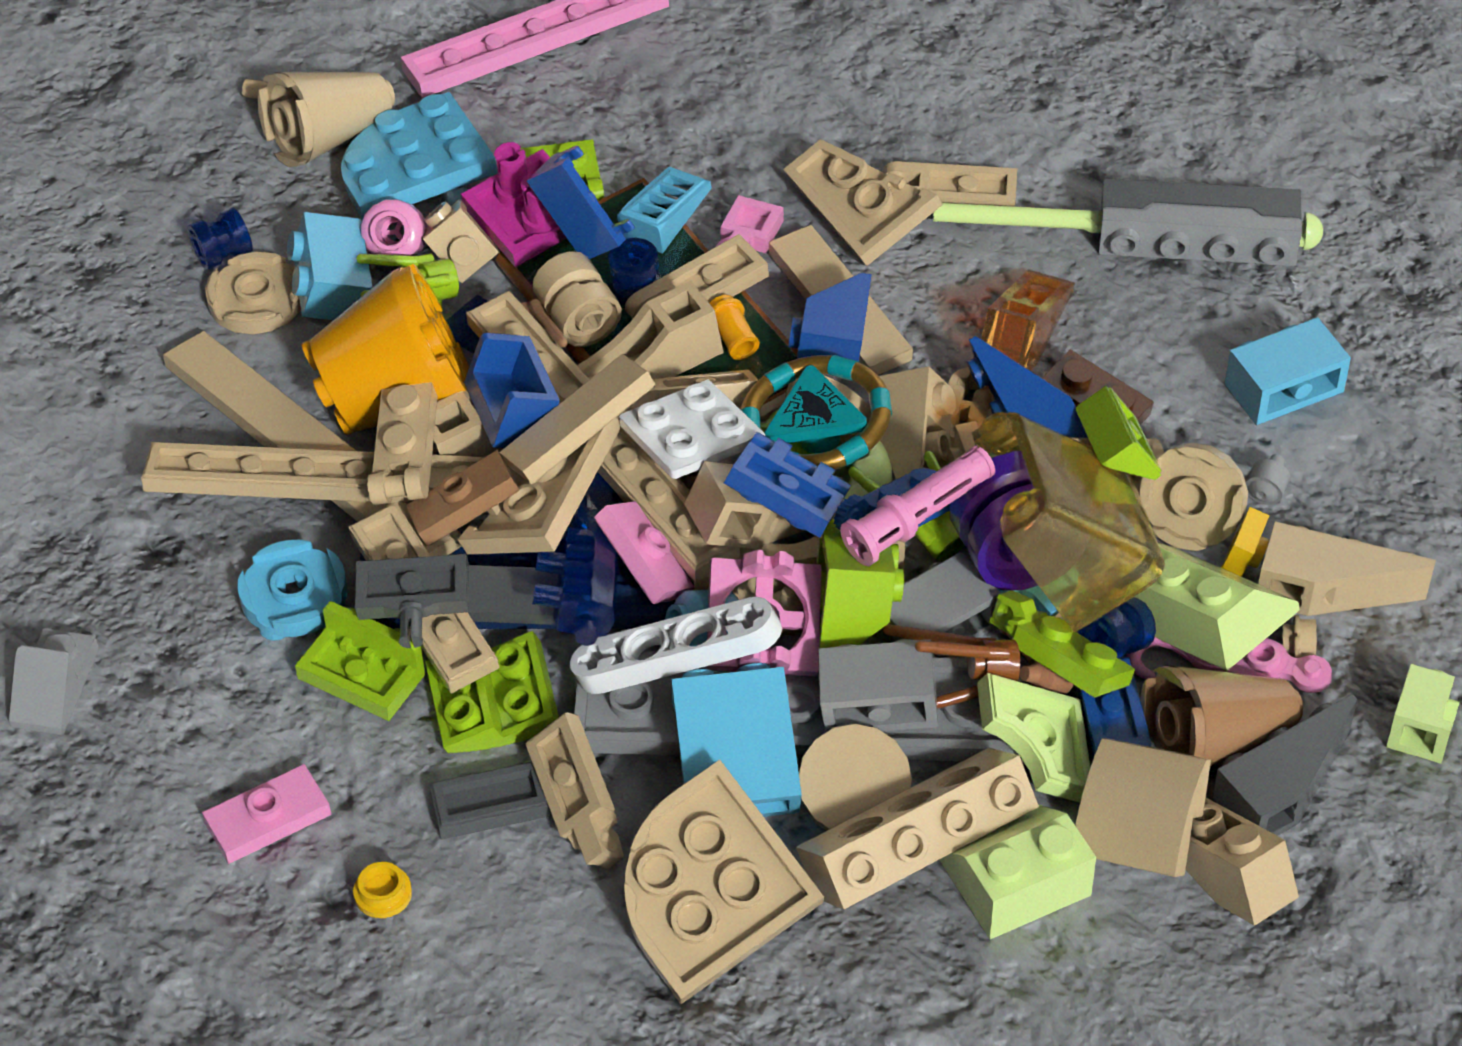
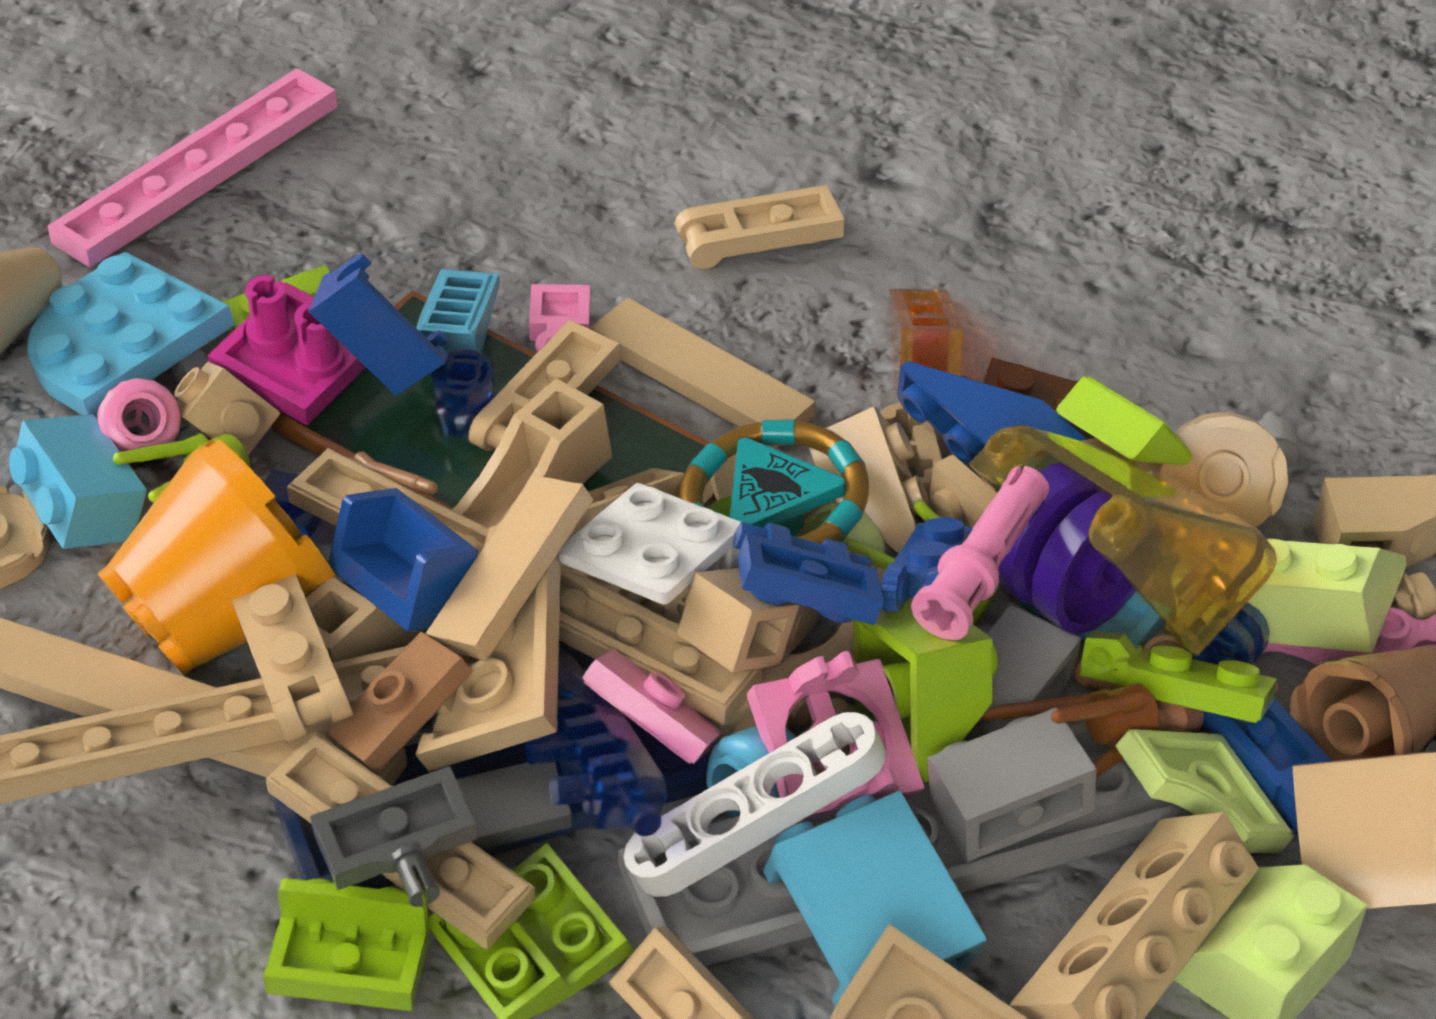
camera: 25 degrees left, 5 degrees down
(298, 613) = (214, 916): medium azure plate -> none
(577, 298) = (410, 435): tan wheel -> none
(734, 327) = (625, 435): light orange pin -> none
(833, 320) = (729, 389): blue slope -> none
(850, 773) = (1025, 899): tan tile -> none
(859, 201) = (670, 259): tan wing -> none
(1174, 221) = (1017, 201): piece -> none
(1247, 544) = (1301, 512): yellow plate -> none
(1287, 370) = (1227, 323): medium azure brick -> none

